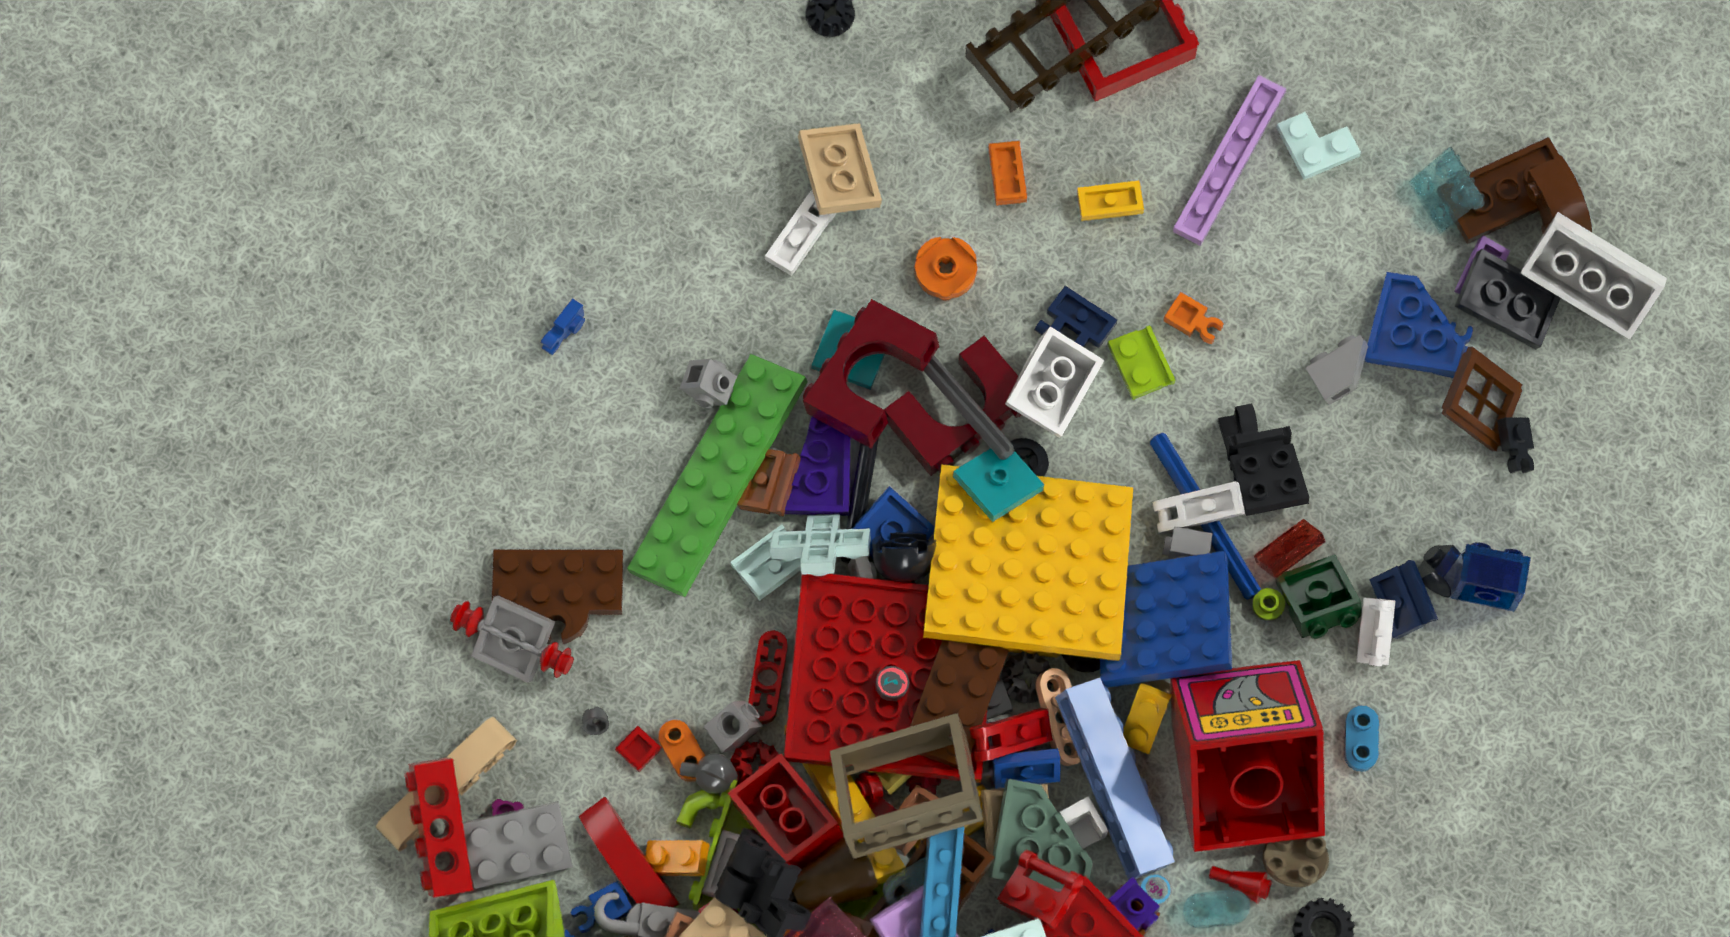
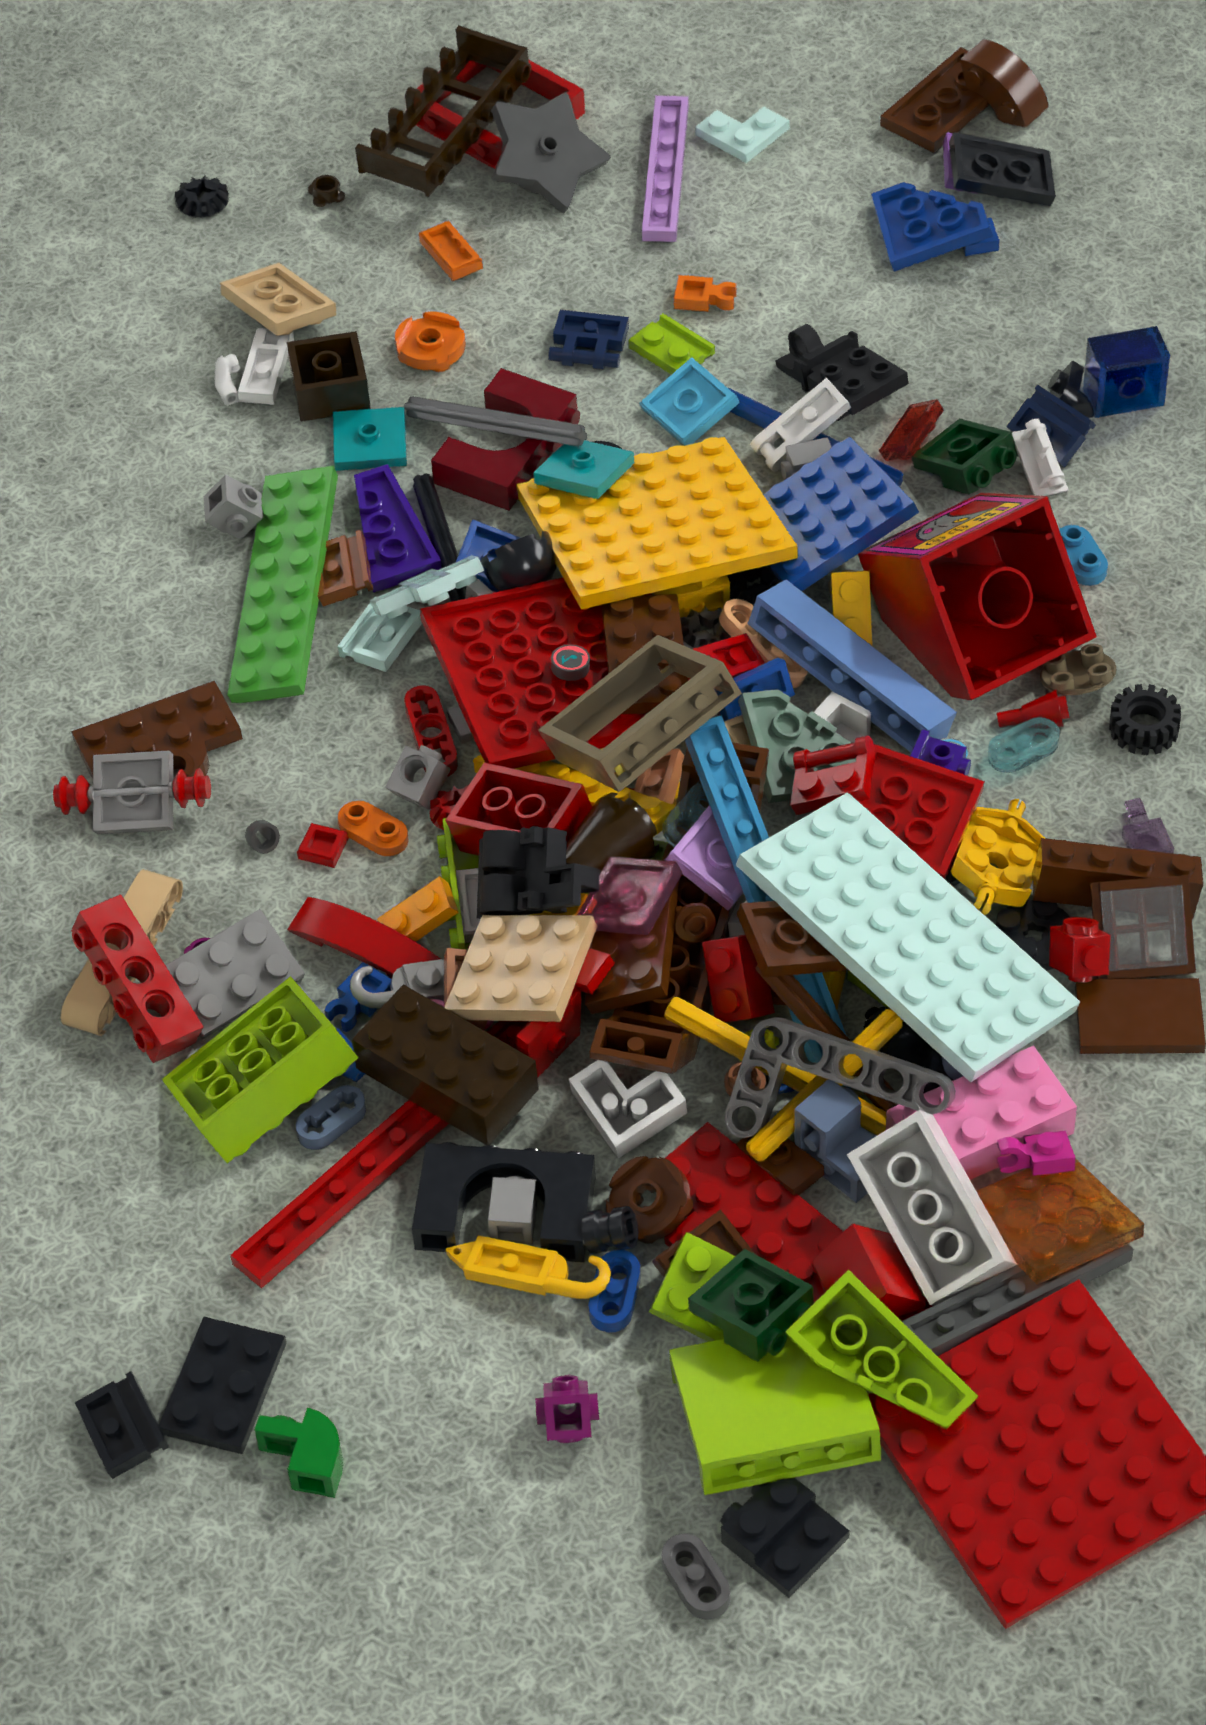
camera: 20 degrees left, 20 degrees down
(568, 321) = (55, 516): blue plate -> none
(694, 803) = (409, 869): lime arm -> none
(712, 773) = (418, 824): dark grey piece -> none
(761, 232) = (223, 368): none -> white arm
(842, 274) = (328, 375): none -> dark brown brick
(874, 332) = (388, 400): dark red arch -> none
(940, 48) = (326, 190): none -> dark brown plate
(1054, 381) = (595, 369): white slope -> none
(1109, 109) = (545, 149): none -> dark grey plate
(1110, 200) = (566, 236): yellow plate -> none
(1124, 434) = (689, 402): none -> medium azure plate
(1268, 613) = (918, 483): lime plate -> none
(1340, 370) = (871, 277): light grey slope -> none
(1446, 190) = (890, 112): clear light blue hinge -> none
(1480, 397) = (1026, 247): reddish brown piece -> none
(1517, 440) = (1078, 270): black plate -> none
(1593, 275) = (1073, 116): white brick -> none

